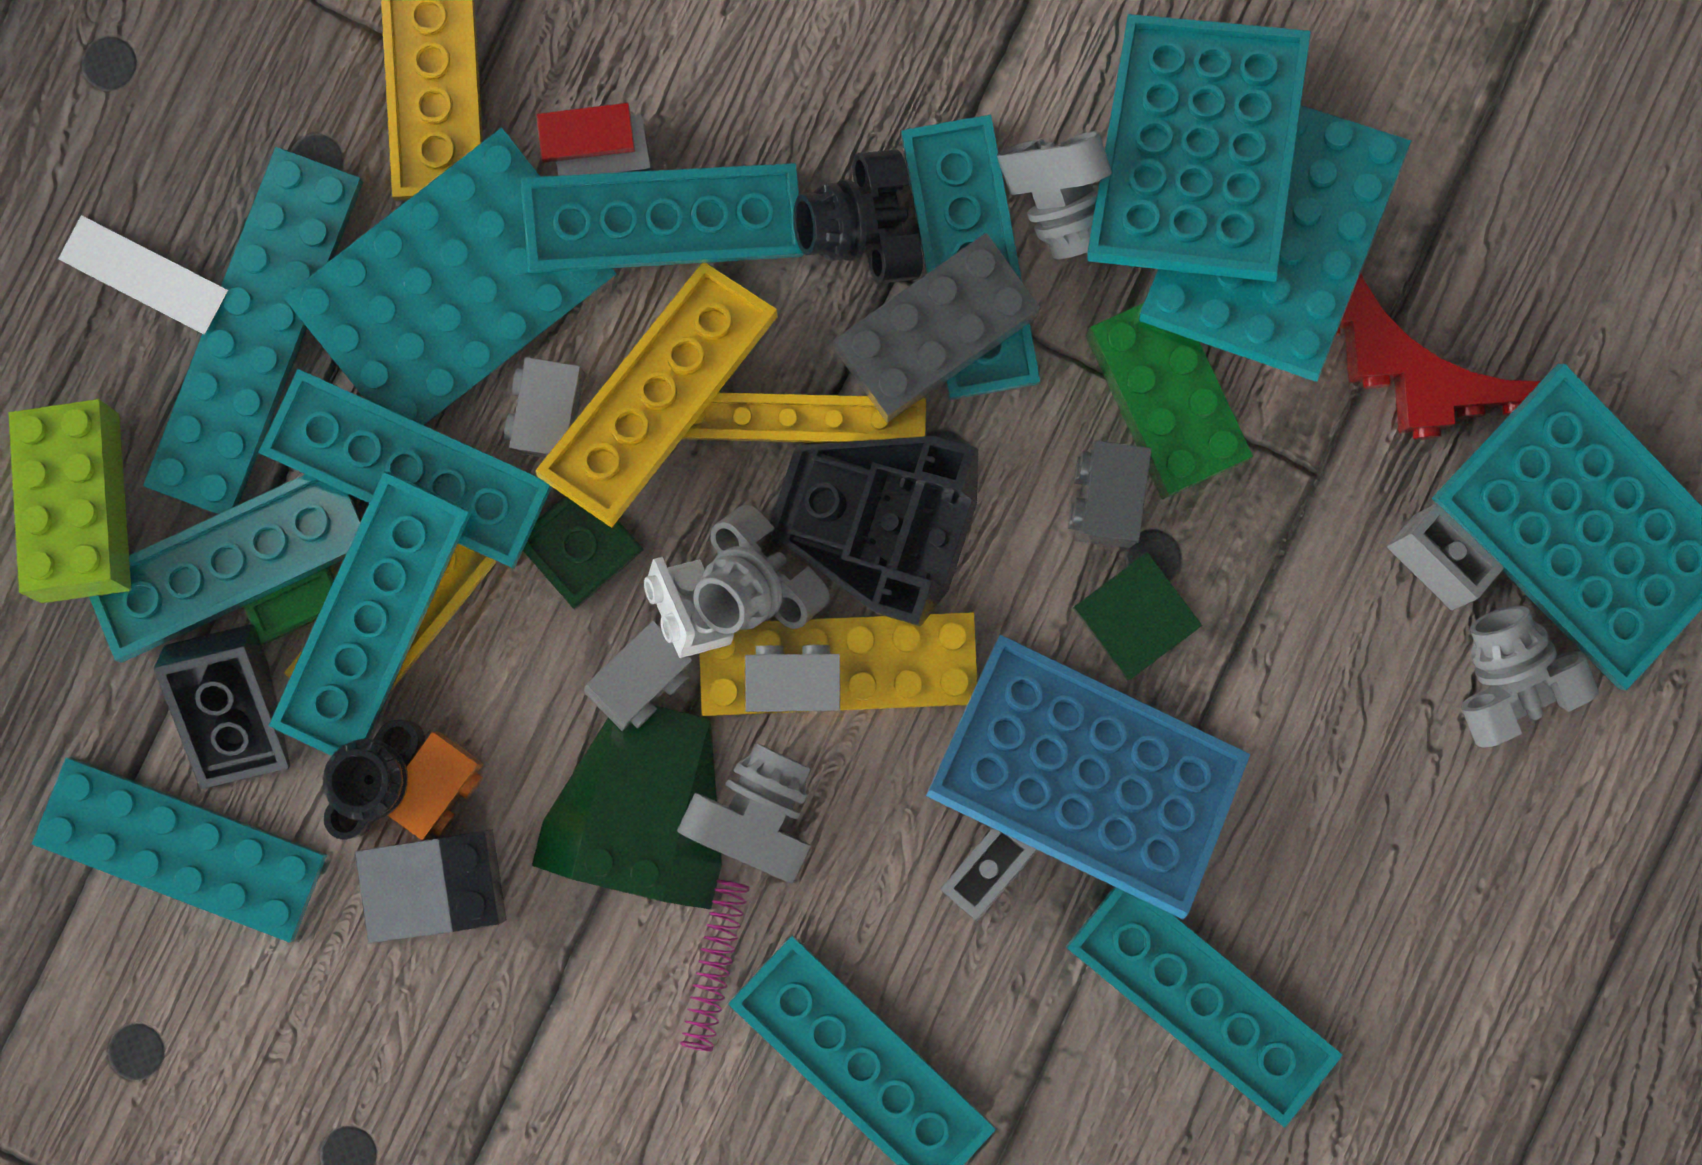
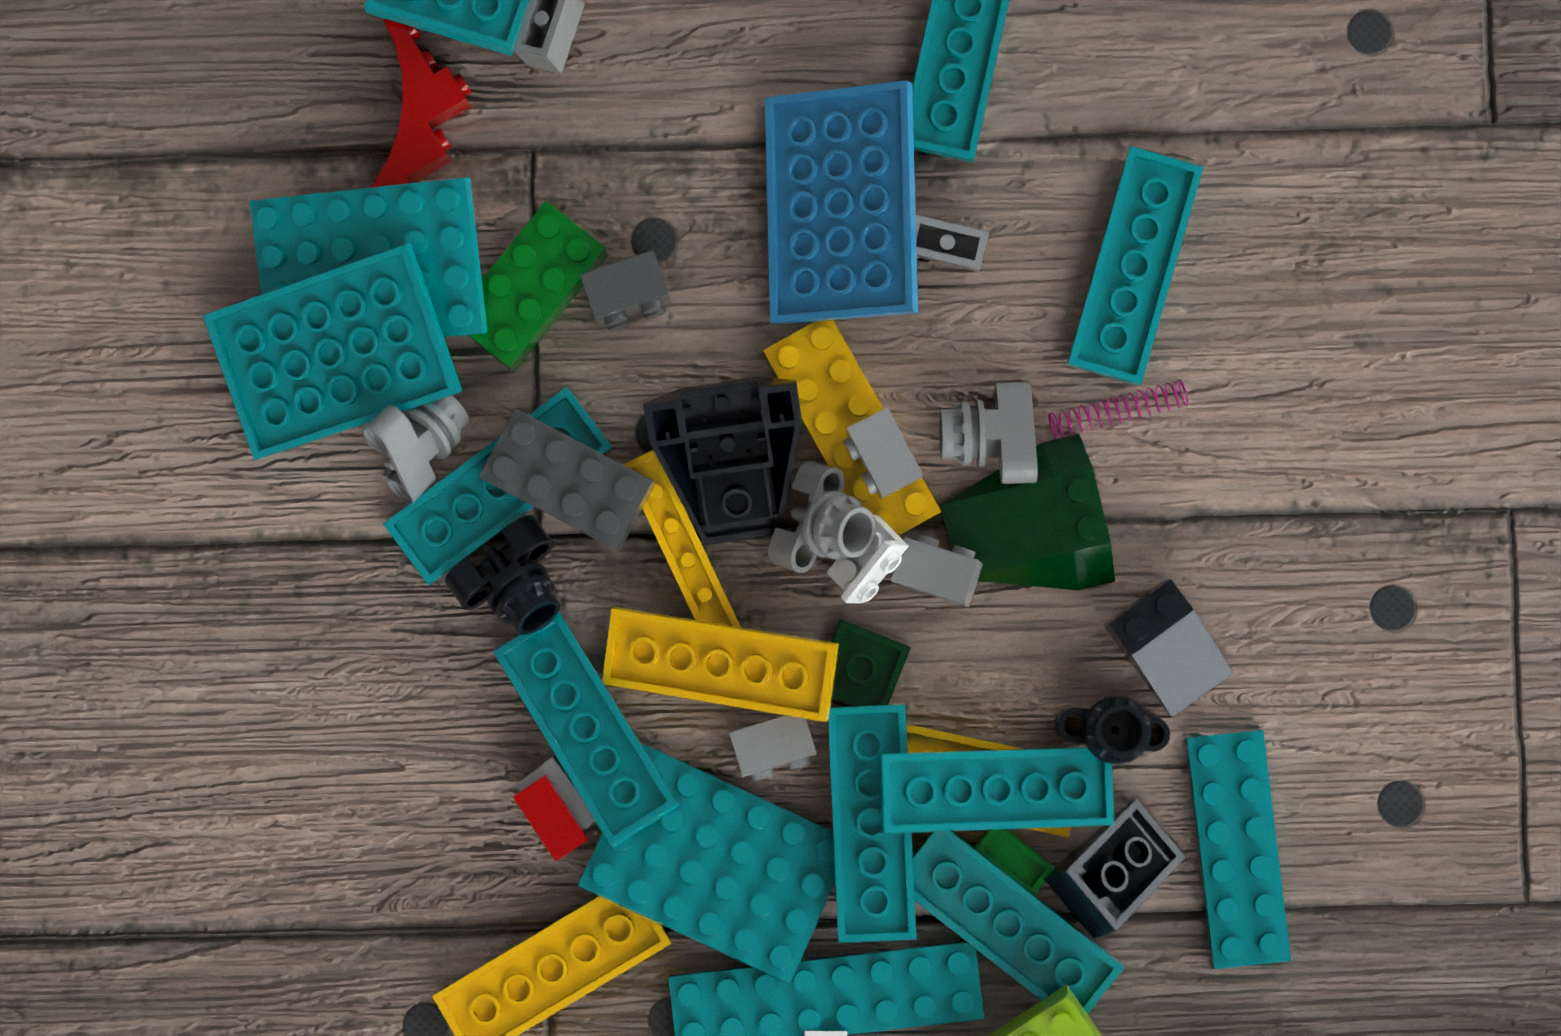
camera: 115 degrees left, 0 degrees up
(436, 781) = (1086, 681): orange brick -> none
(1137, 616) = (704, 229): dark green tile -> none

